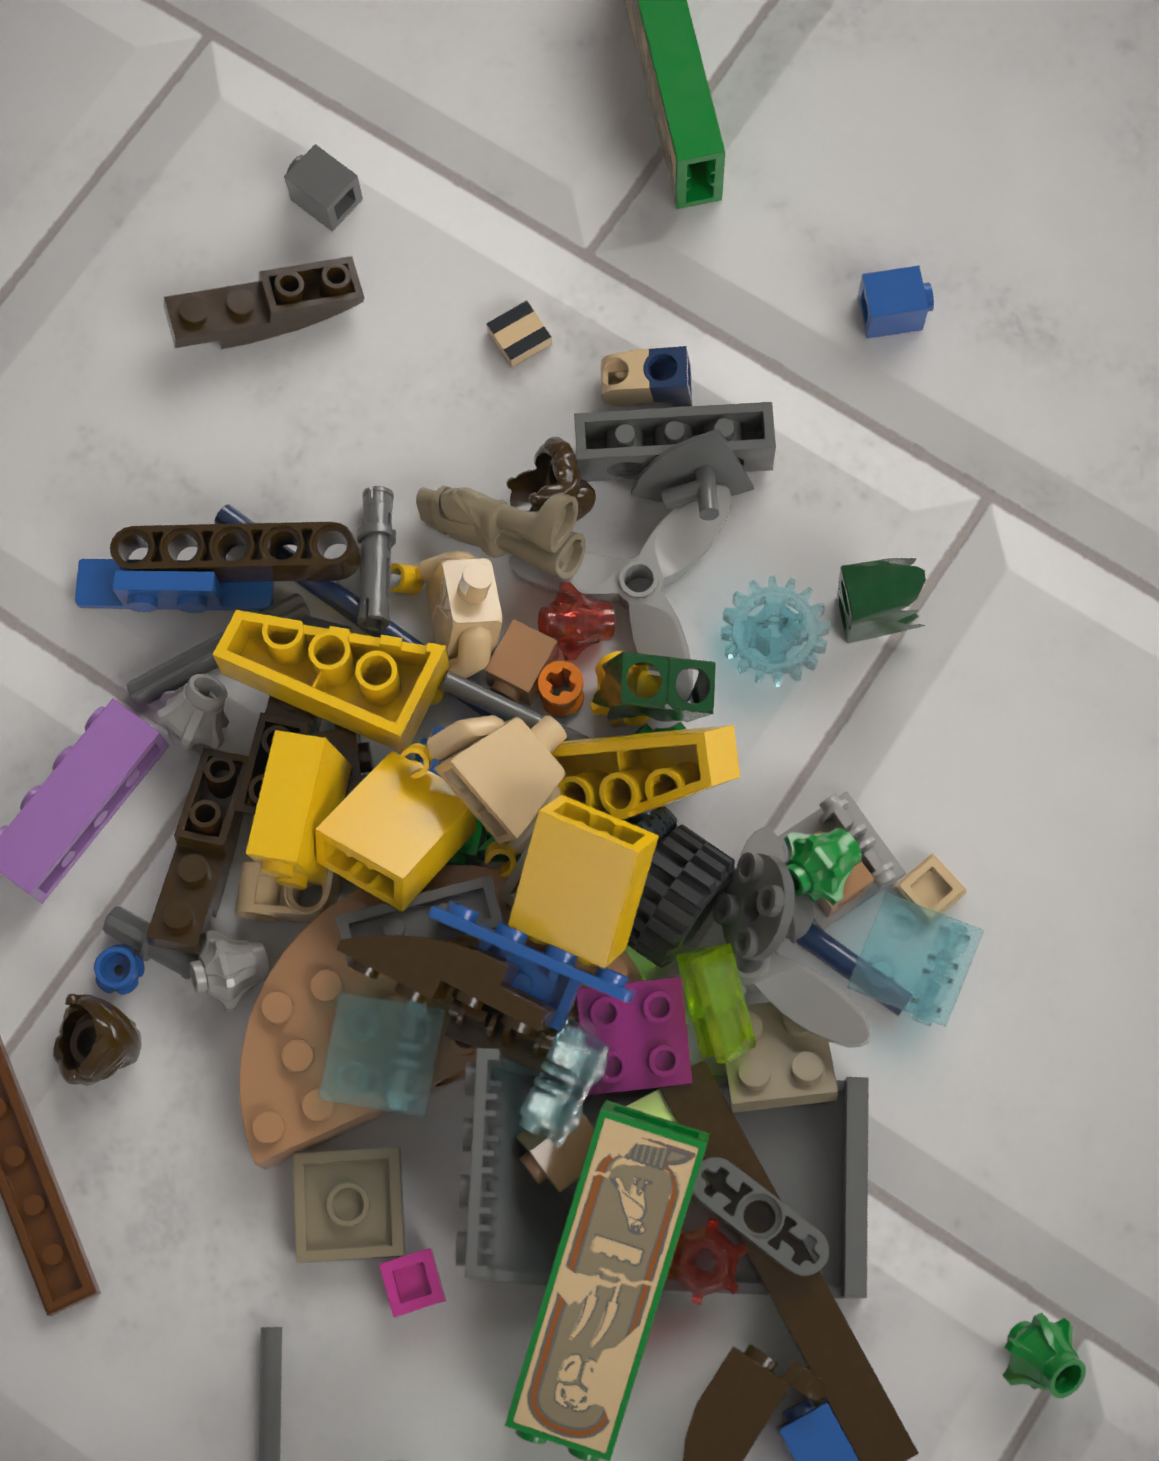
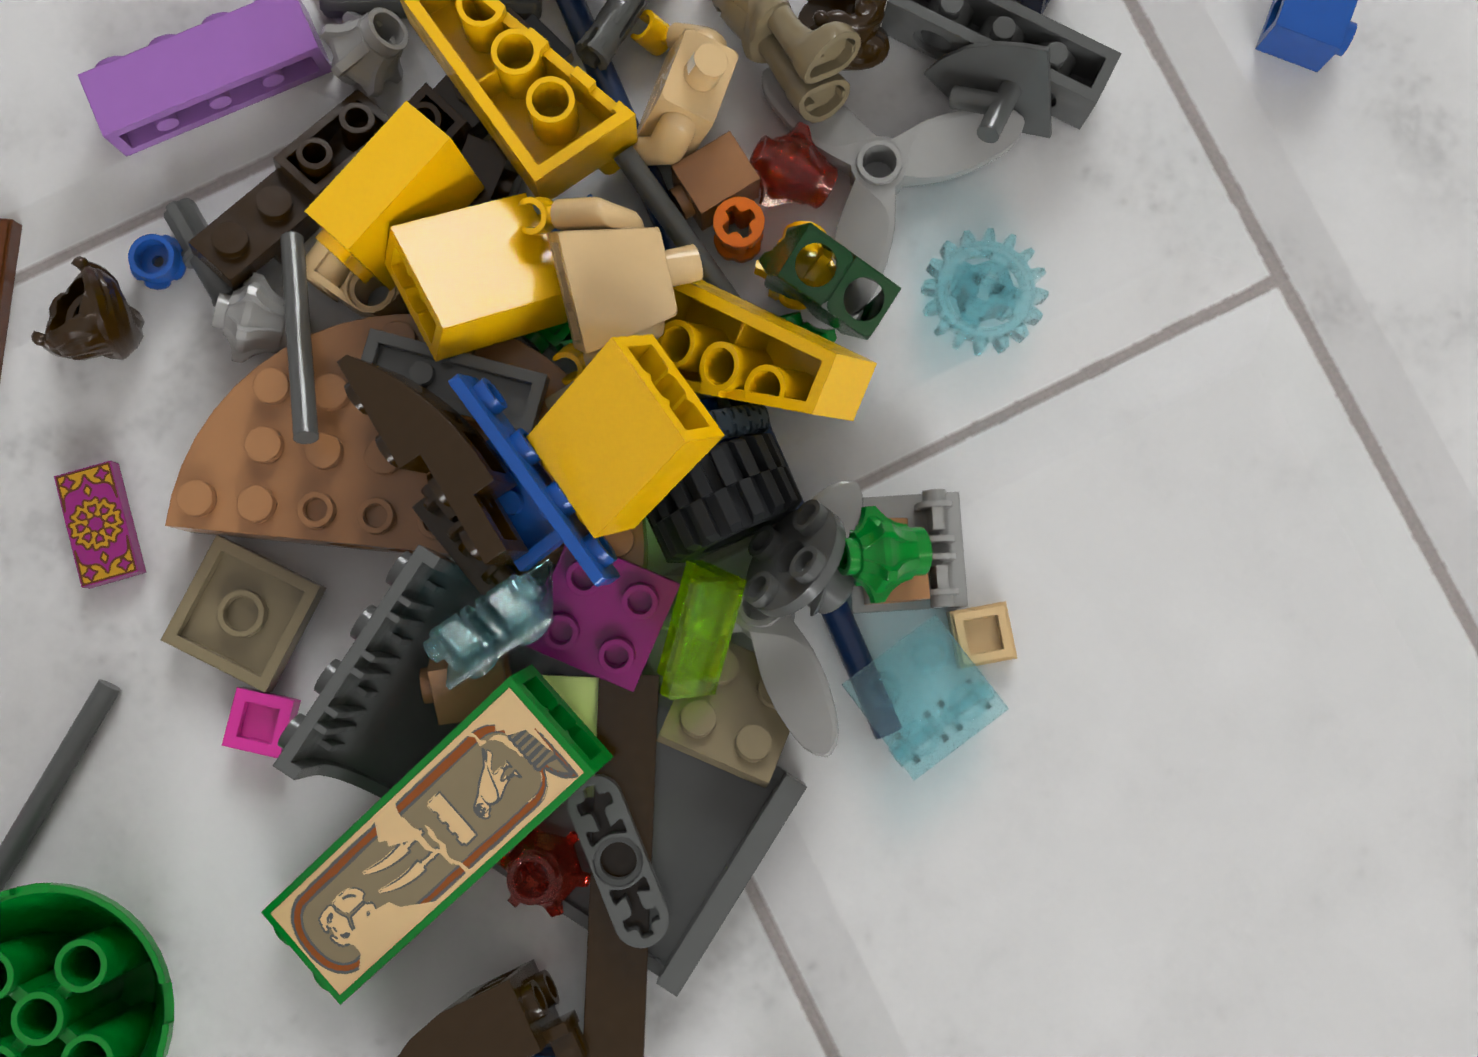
camera: 20 degrees right, 10 degrees up
(190, 1203) = (100, 524): none -> tile
(279, 957) = (299, 339): none -> dark grey bar
(382, 1054) = (339, 493): clear light blue hinge -> none
(874, 595) = (1104, 313): dark green piece -> none

